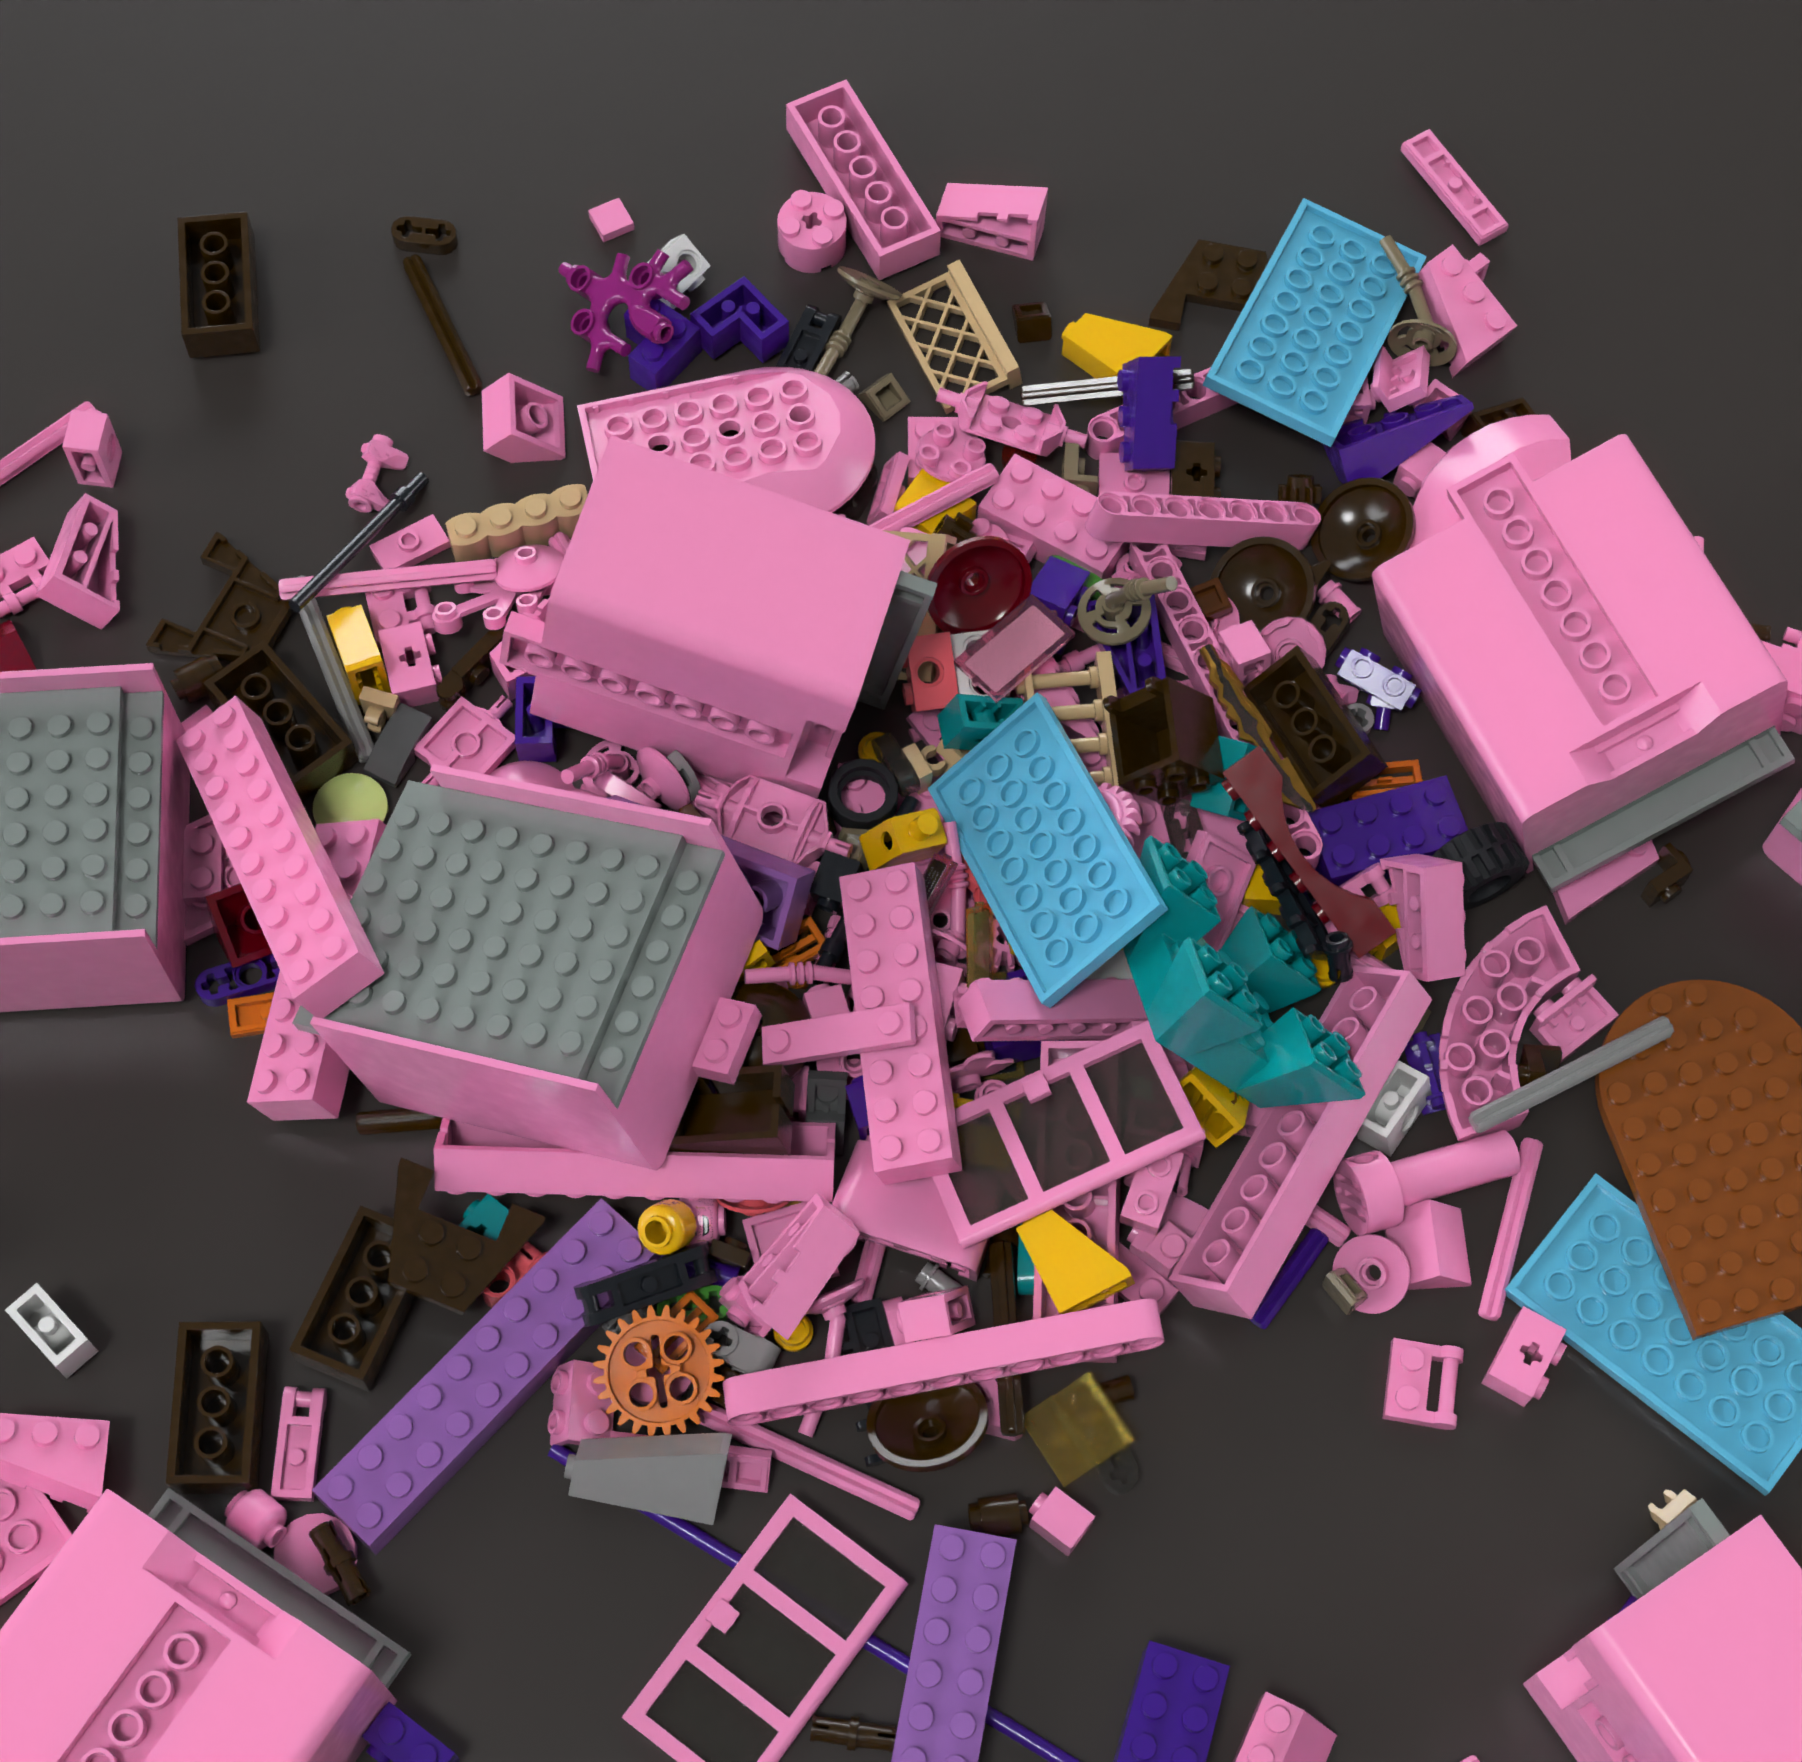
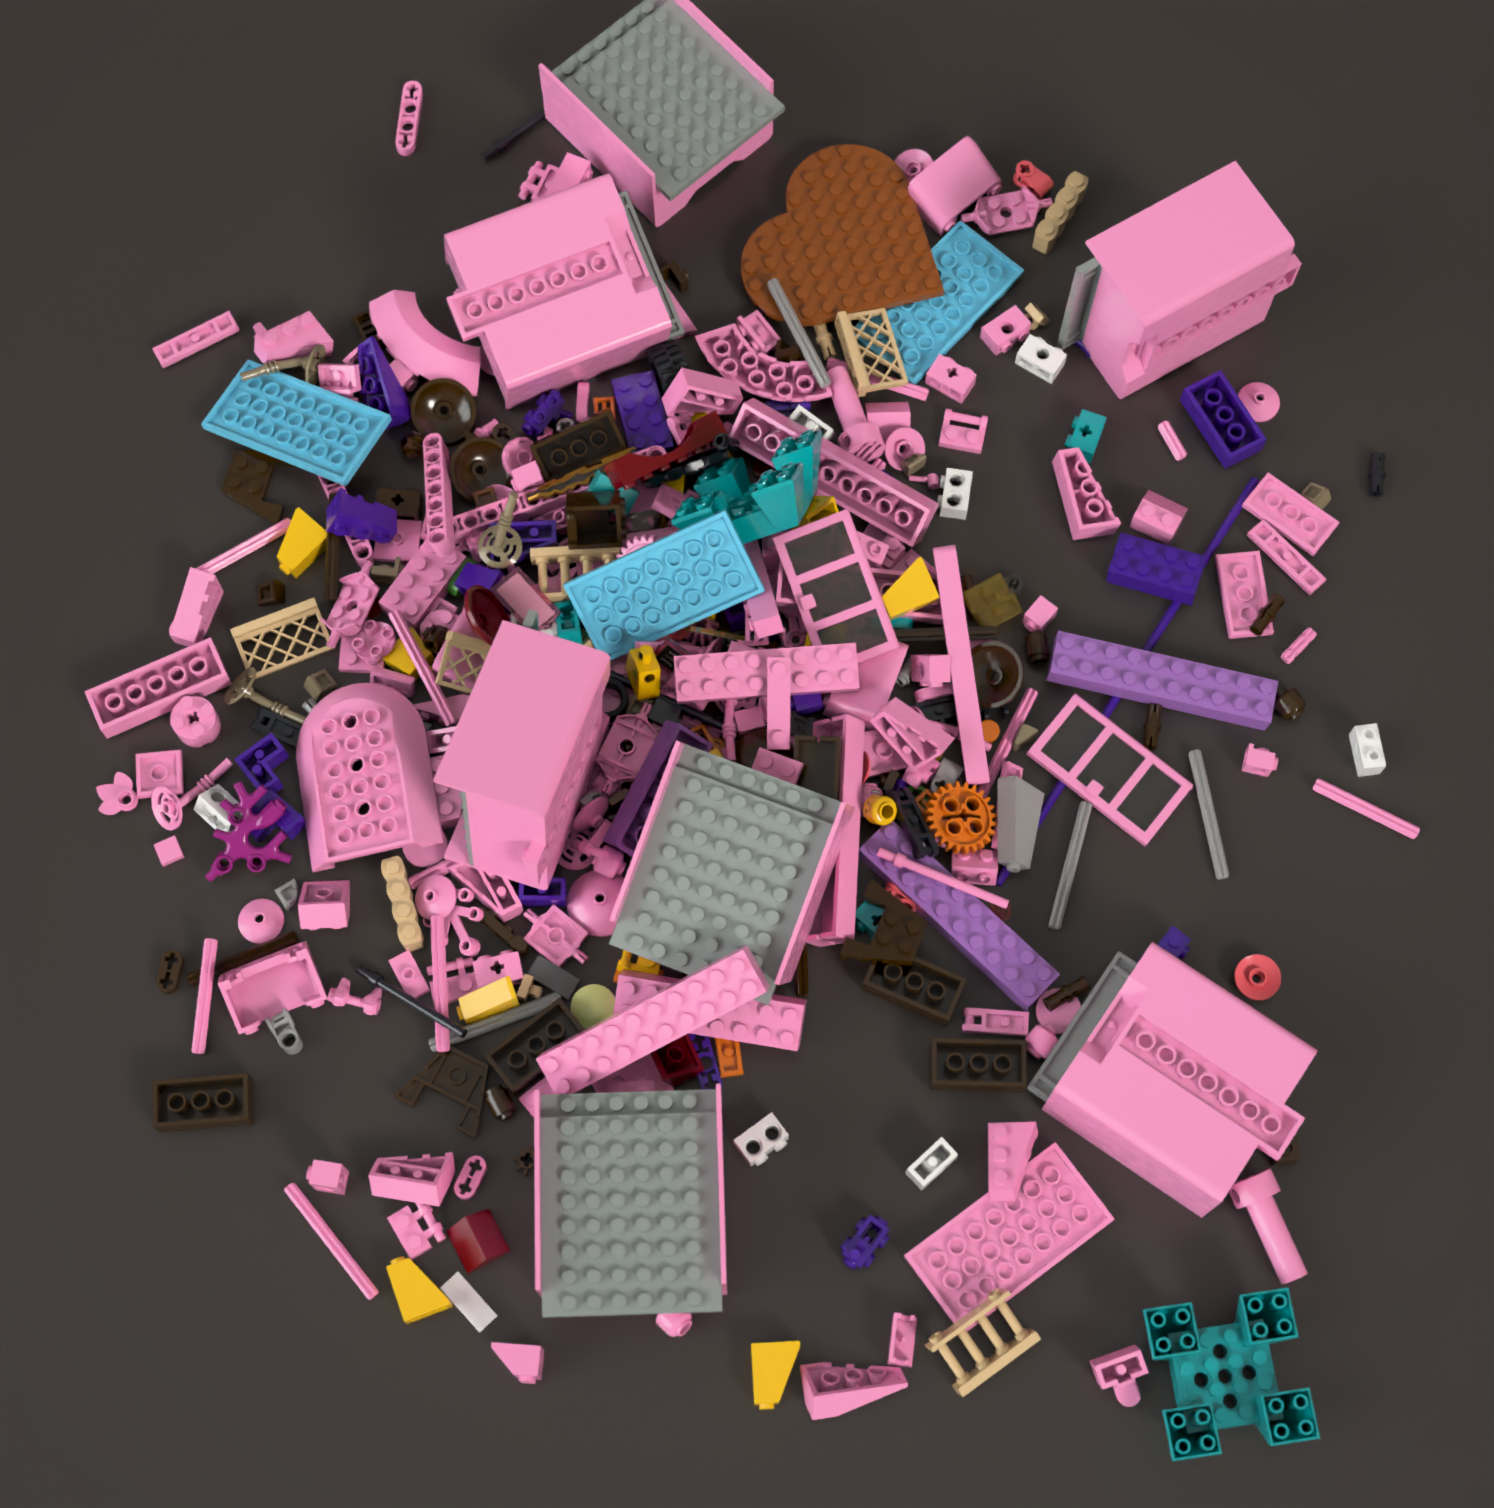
camera: 85 degrees left, 5 degrees up
(90, 640) = (465, 1175): none -> bright pink beam
(120, 1059) = (757, 1135): none -> white brick
(326, 383) = (283, 1028): none -> light grey piece
(381, 276) = (204, 996): none -> bright pink axle
(393, 357) = (270, 984): none -> bright pink windscreen
(501, 1453) = (1002, 913): none -> clear red tile
(510, 356) = (265, 930): none -> bright pink dish
(544, 375) = (288, 893): none -> light grey tile
(573, 1263) = (901, 861): none -> bright pink bar
(584, 1577) = (1070, 865): none -> light grey axle
(675, 211) = (173, 806): none -> bright pink dish
(697, 146) = (115, 794): none -> bright pink plate
(730, 196) = (157, 770): none -> bright pink plate
(824, 1490) = (1024, 736): none -> dark tan slope
(835, 1430) = (990, 730): none -> orange tile
(1099, 272) = (246, 547): none -> bright pink axle
(1291, 1603) = (1082, 498): none -> bright pink wedge
(1292, 1378) = (959, 494): none -> white brick
(1316, 1329) = (932, 480): none -> bright pink hand
(1409, 742) = (582, 405): none -> bright pink beam
(1413, 1614) = (1089, 425): none -> teal brick
(1550, 1174) = (853, 350): none -> tan fence
(1568, 1539) = (1044, 368): none -> white brick
(1576, 1134) = (825, 339): none -> tan pin
(1634, 1435) = (1010, 320): none -> bright pink brick

